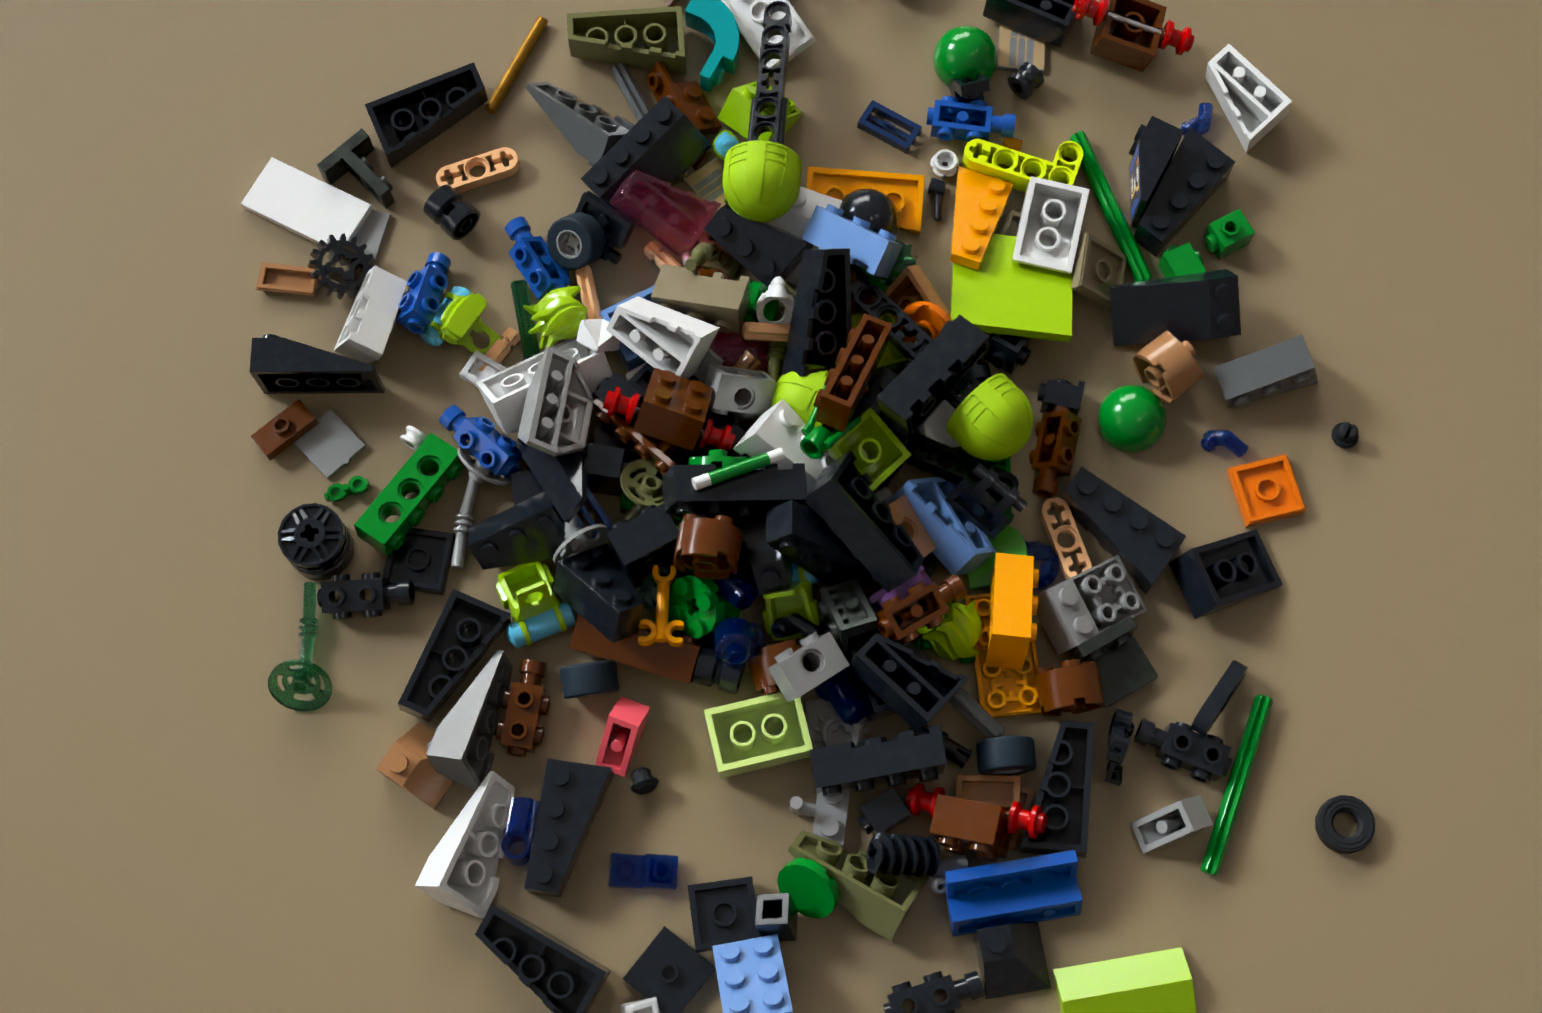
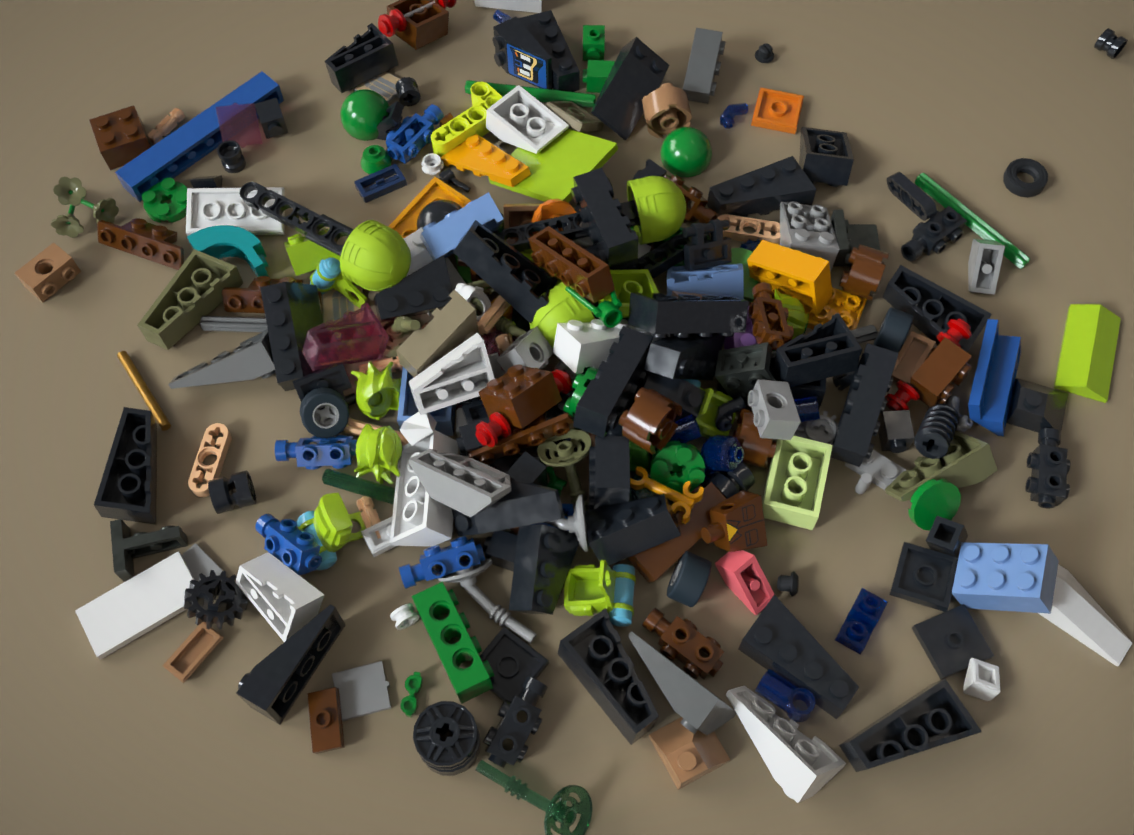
camera: 60 degrees left, 10 degrees down
(626, 272) = (377, 391): none -> lime hair
(668, 695) = (737, 523): none -> reddish brown torso
(738, 468) = (606, 364): green bar -> none
(913, 104) = (375, 159): none -> green cone
(1117, 741) = (915, 262): black piece -> none

